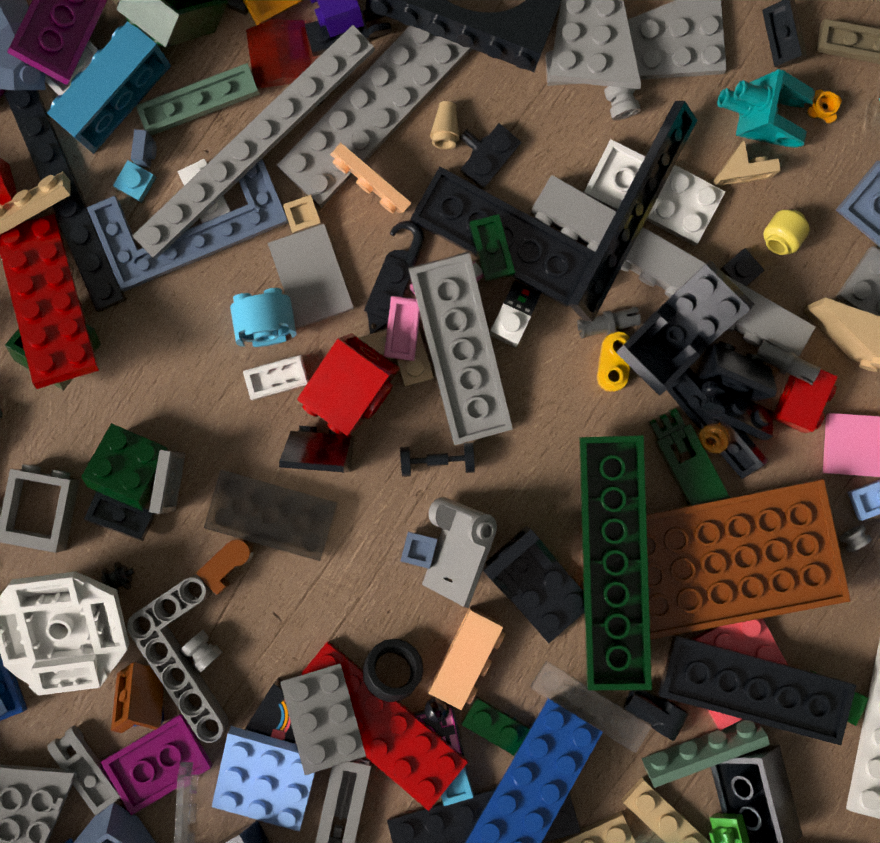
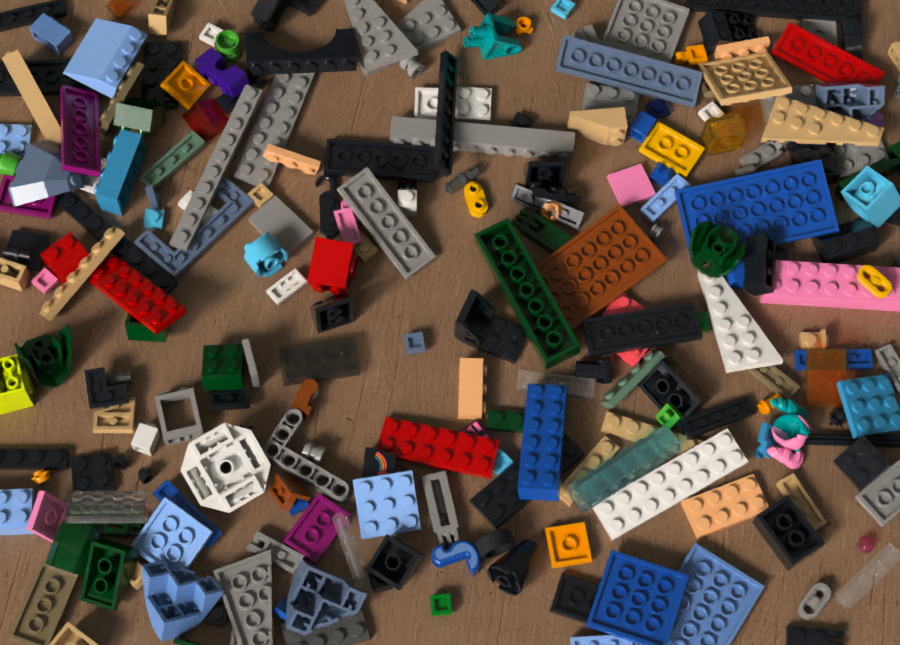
camera: 30 degrees left, 20 degrees down
(322, 719) = (404, 449): light grey plate -> none
(408, 653) = (428, 420): black tyre -> none
(430, 713) = (465, 425): black hinge -> none
(437, 459) = (384, 299): black wheel -> none
(445, 126) = (320, 118): tan cone -> none
(459, 550) = (438, 326): light grey door -> none
(488, 154) = (351, 122): black plate -> none
(492, 248) = (377, 165): dark green plate -> none
(684, 327) = (504, 159): black bracket -> none
(740, 171) = (496, 74): tan slope -> none
(786, 232) = (535, 94): light yellow head -> none
(788, 362) = (568, 154): dark grey pin -> none
(803, 404) = (589, 172): red brick -> none

